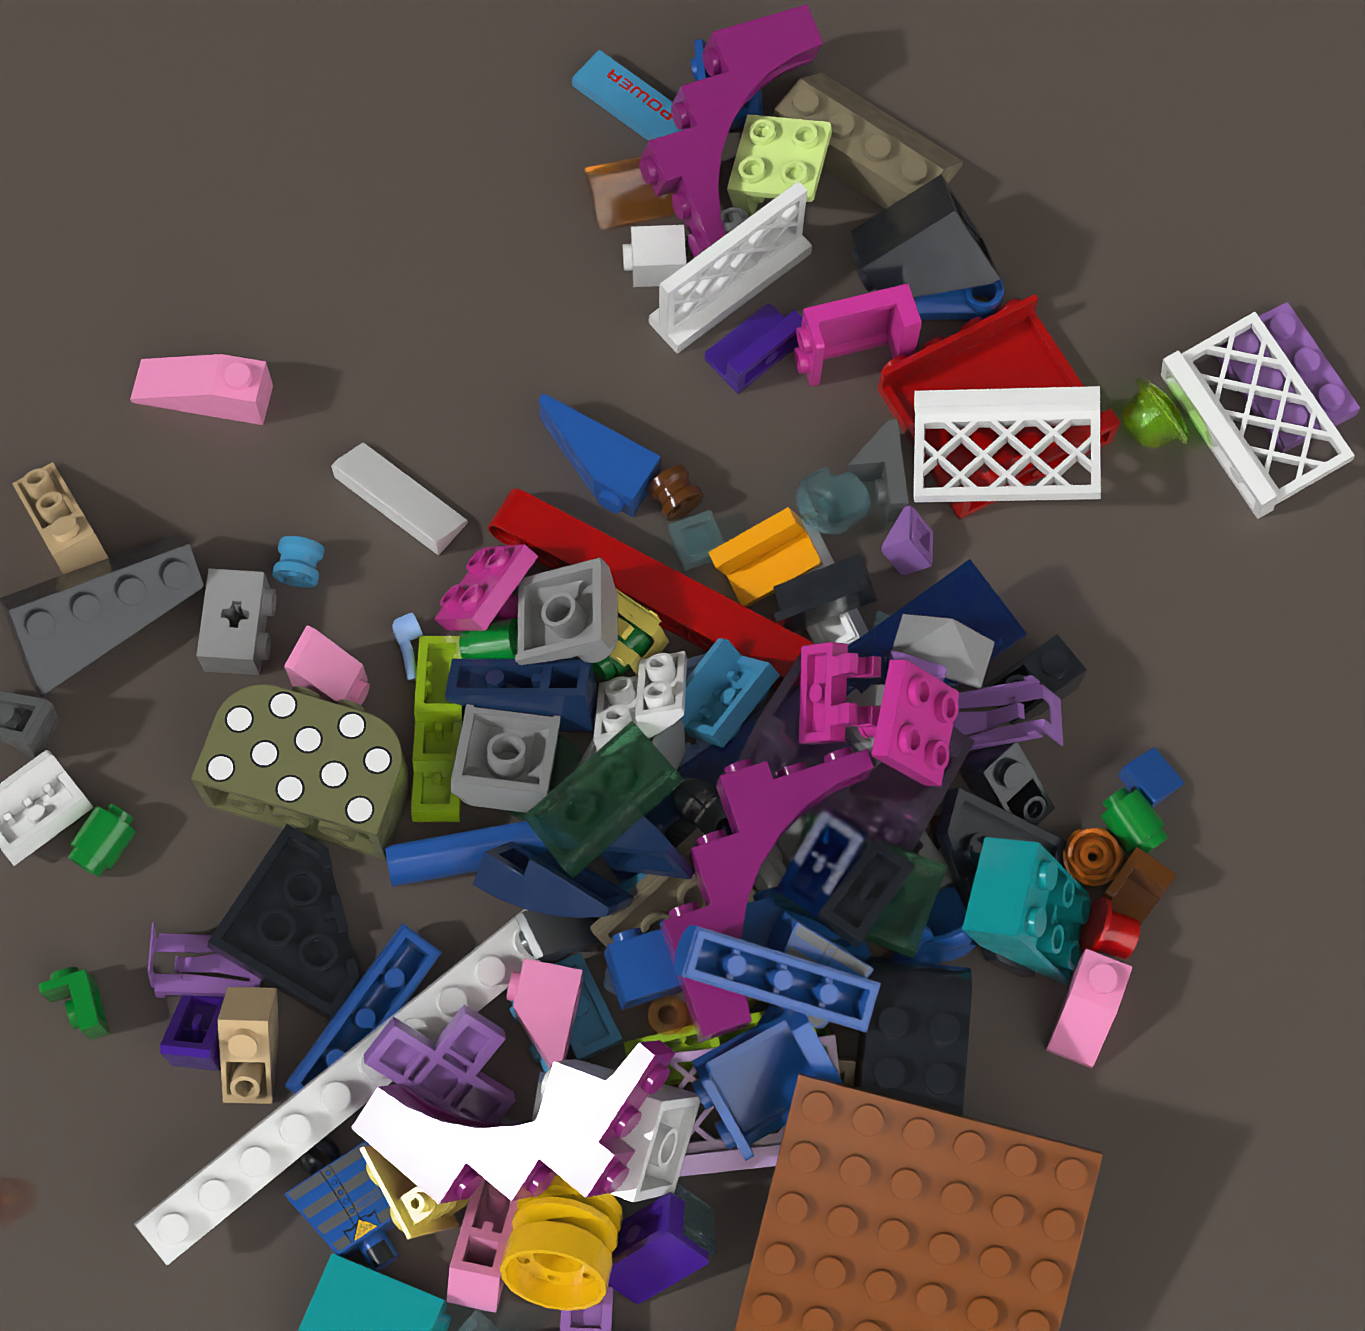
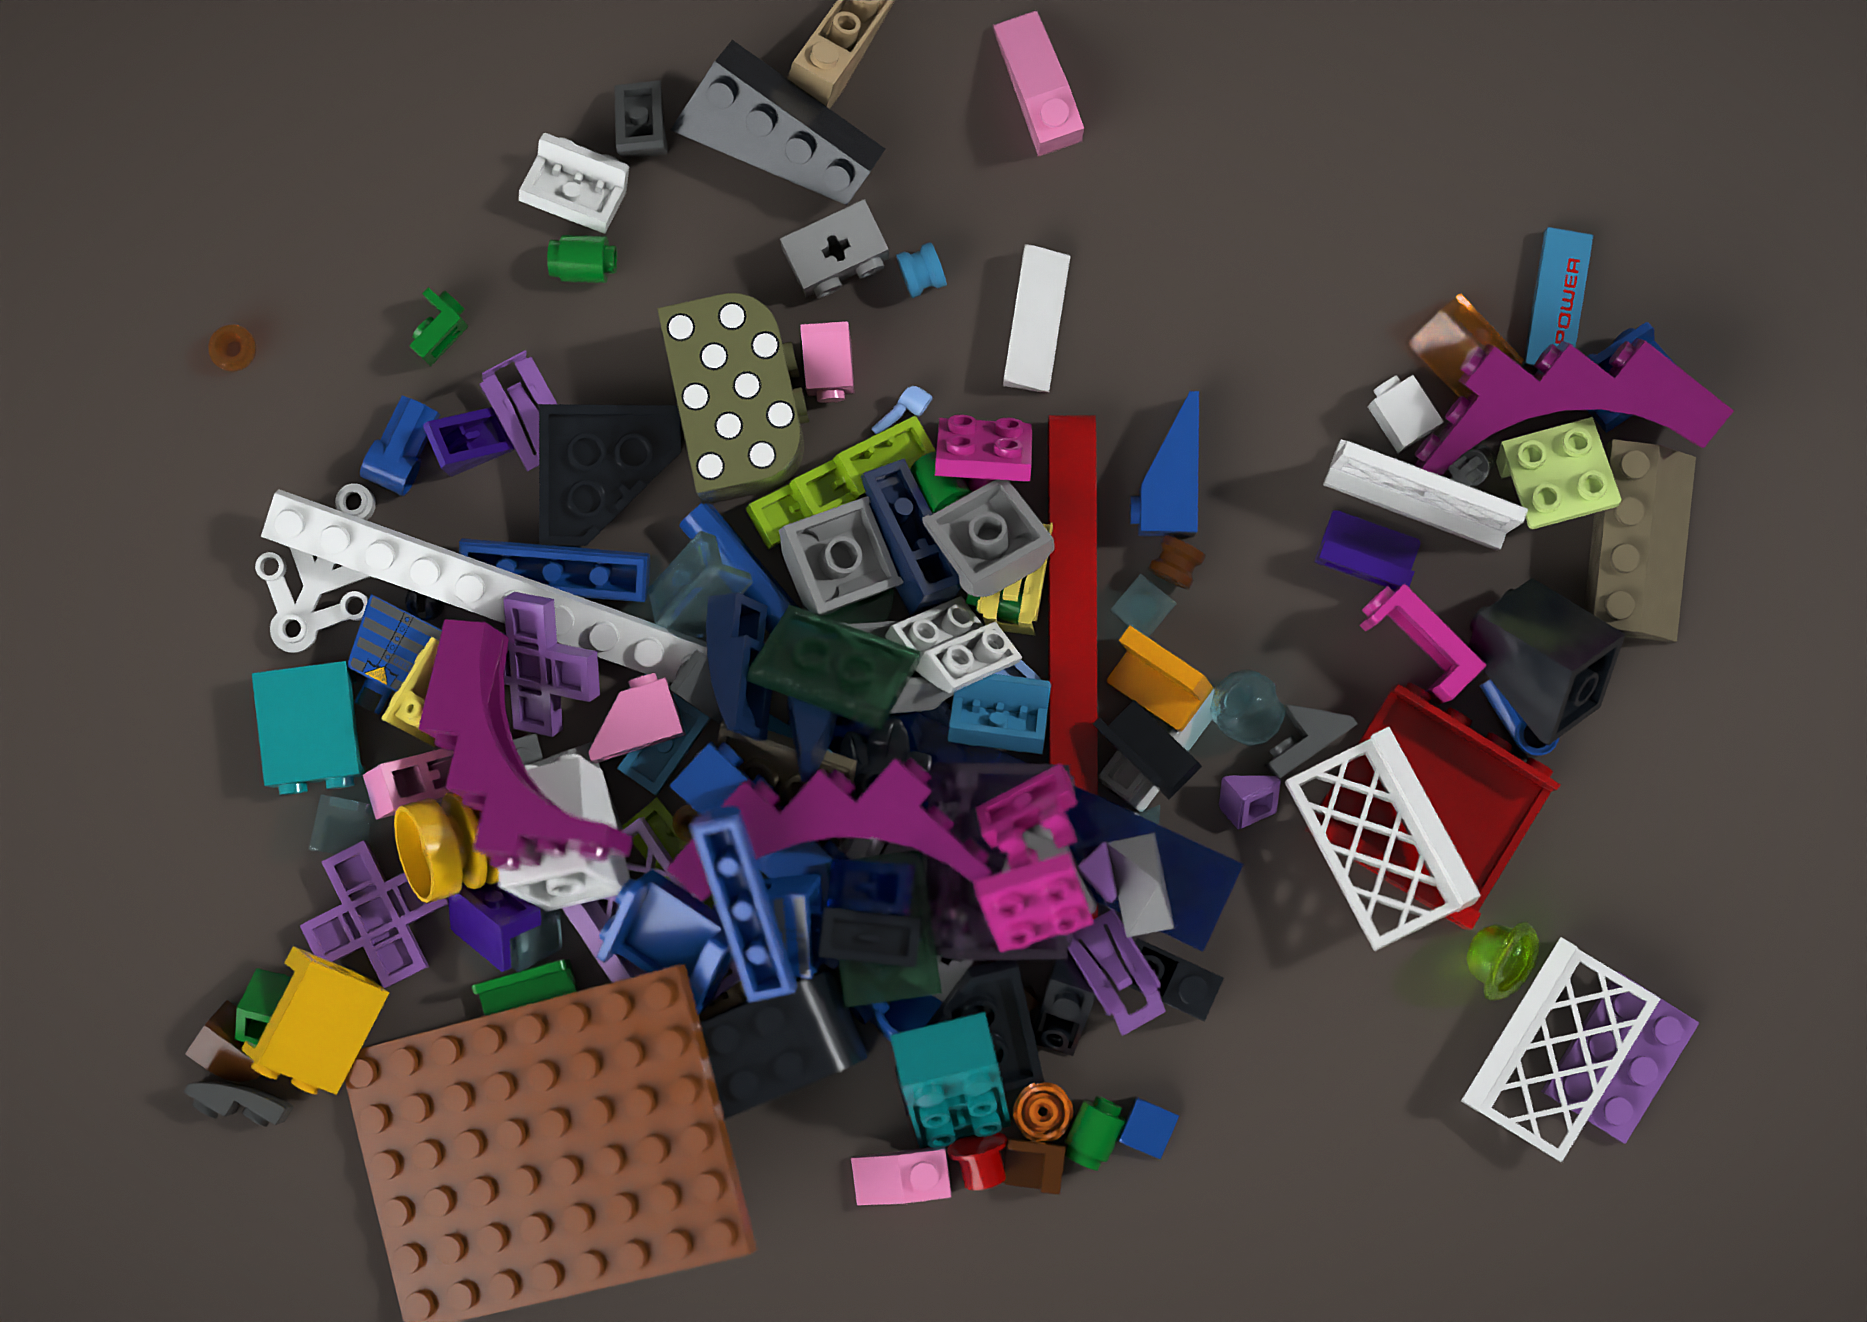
camera: 65 degrees right, 15 degrees up
(170, 1104) = (394, 458): none -> blue piece
(239, 1245) = (317, 579): none -> white plant
(248, 1044) = (480, 488): tan slope -> none
(452, 907) = (683, 588): none -> clear light blue panel
(733, 1259) = (526, 987): none -> green panel

